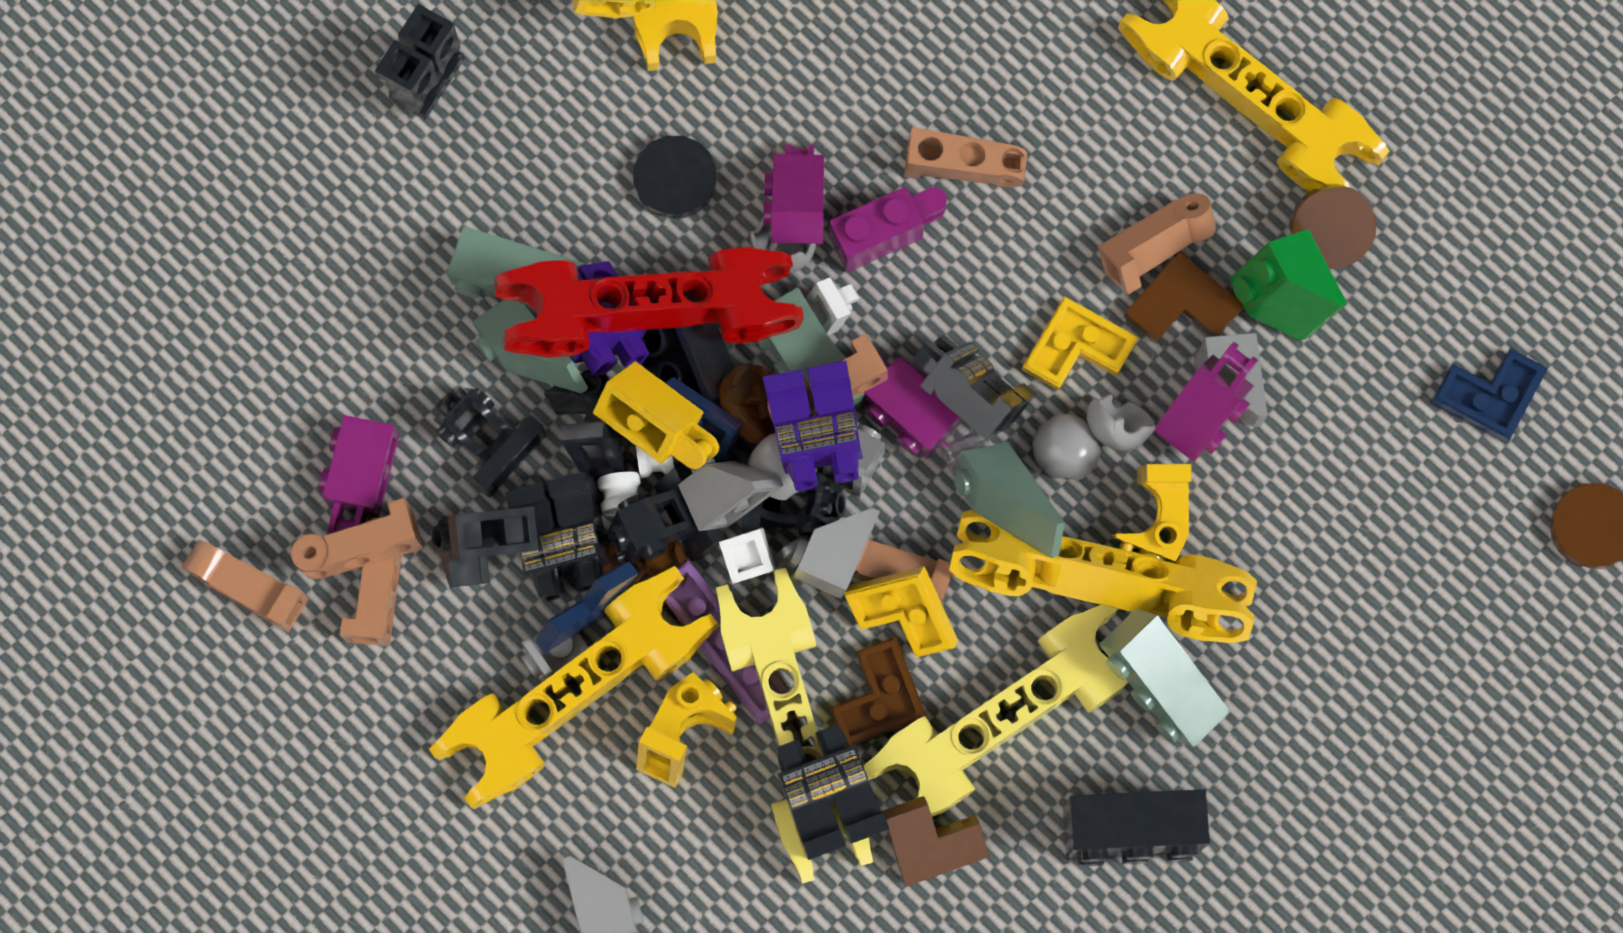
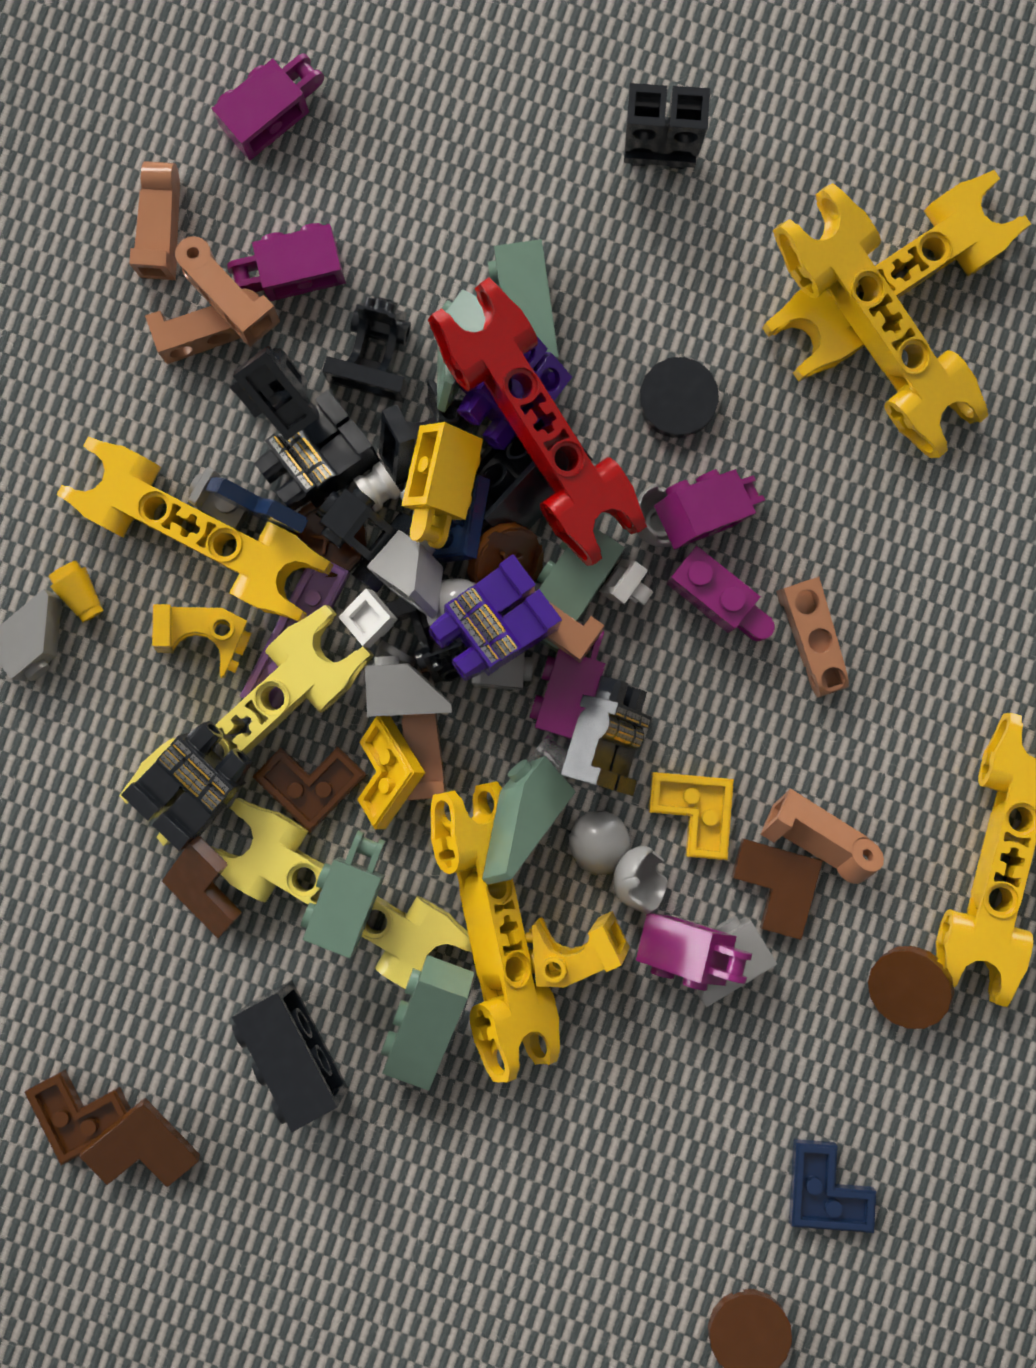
camera: 70 degrees right, 10 degrees up
(186, 426) = (267, 103): none -> magenta brick
(575, 835) = (76, 590): none -> yellow cone
(1009, 696) = (345, 899): none -> sand green brick
(1289, 286) = (834, 976): green slope -> none

